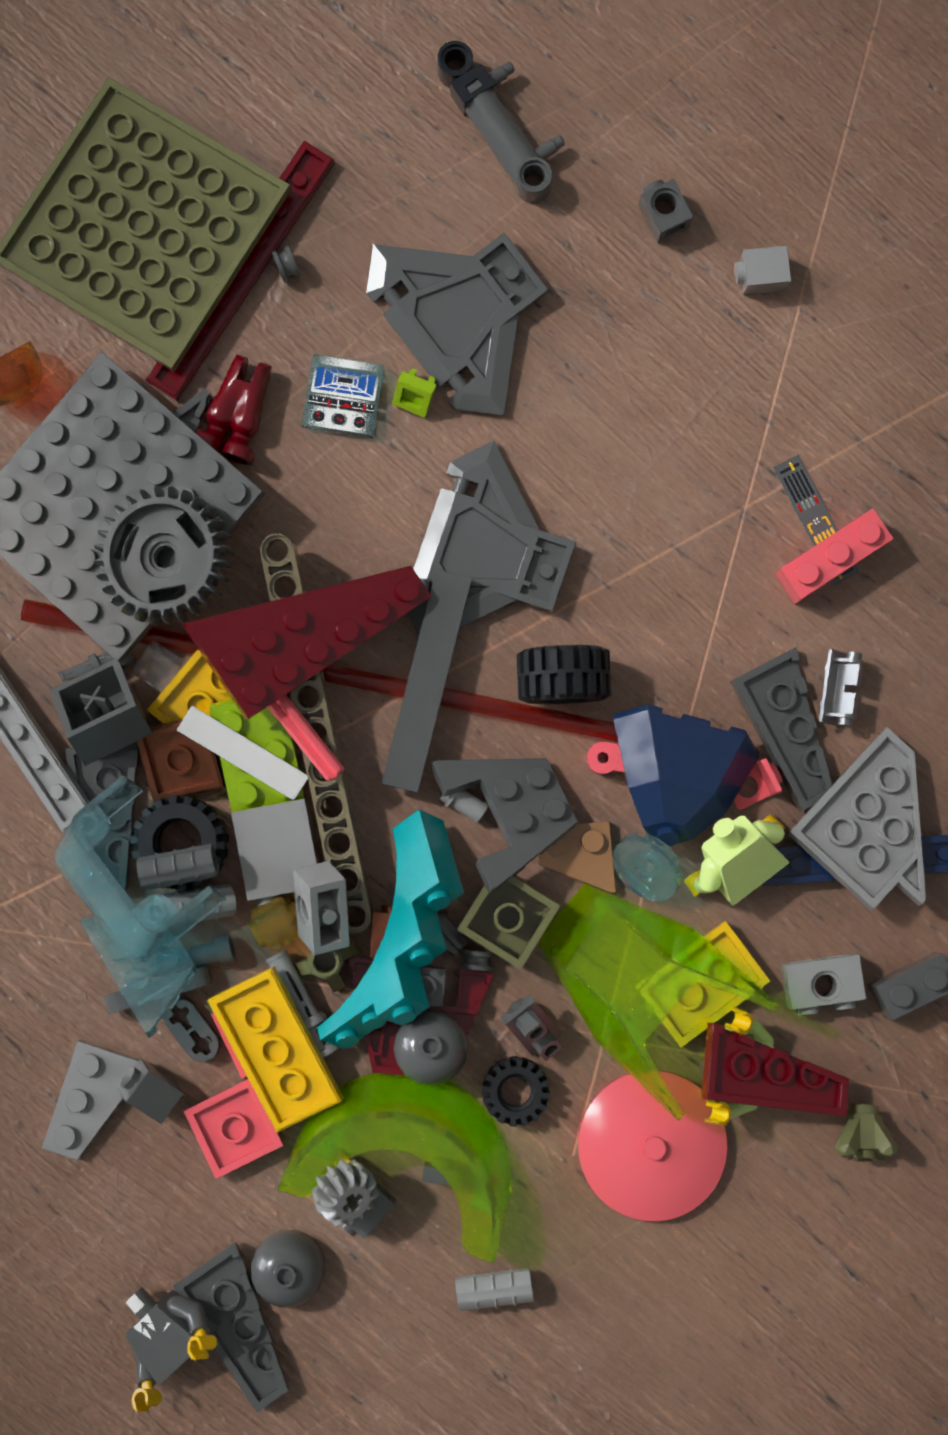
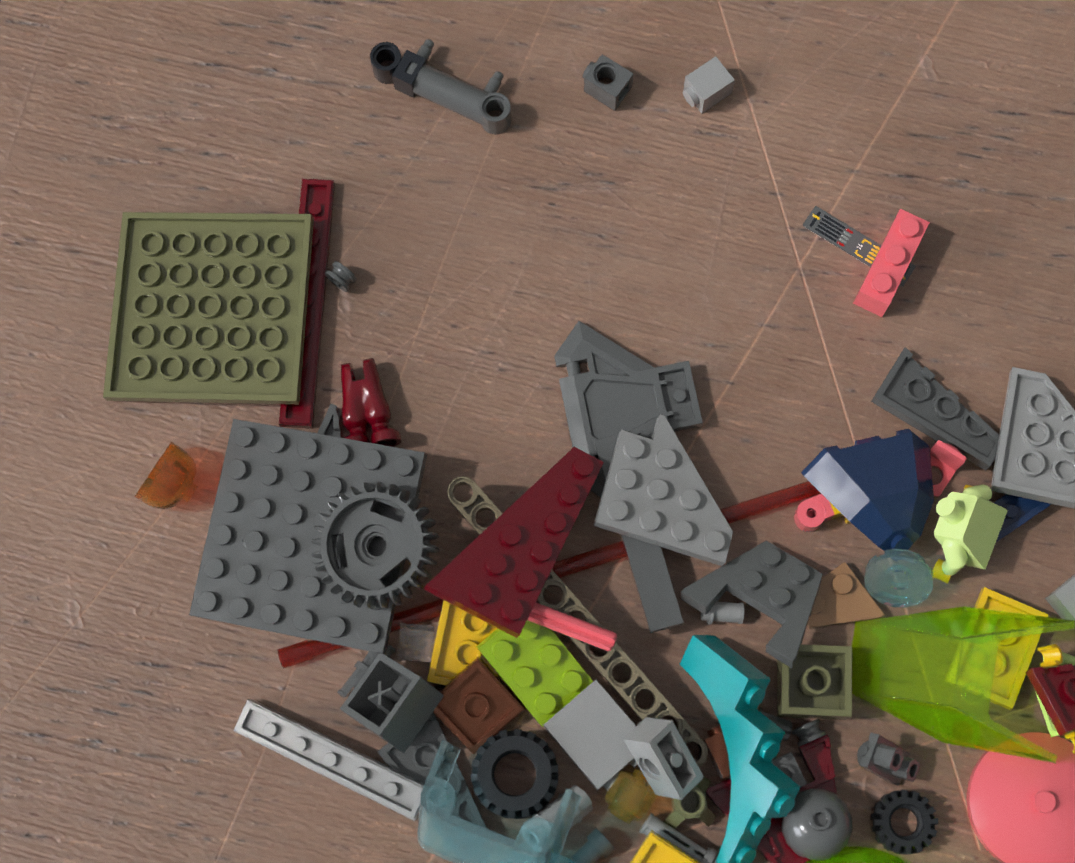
camera: 25 degrees left, 10 degrees down
(177, 867) = (528, 791): dark grey axle -> none
(242, 752) = (525, 670): white sticker -> none
(343, 396) = (442, 351): tile -> none
(414, 393) = (497, 318): lime tile -> none
(459, 314) = (496, 242): dark grey plate -> none
(467, 661) = (661, 497): none -> light grey wing
(563, 674) = (743, 464): black tyre -> none
(837, 704) = (964, 371): flat silver hinge -> none

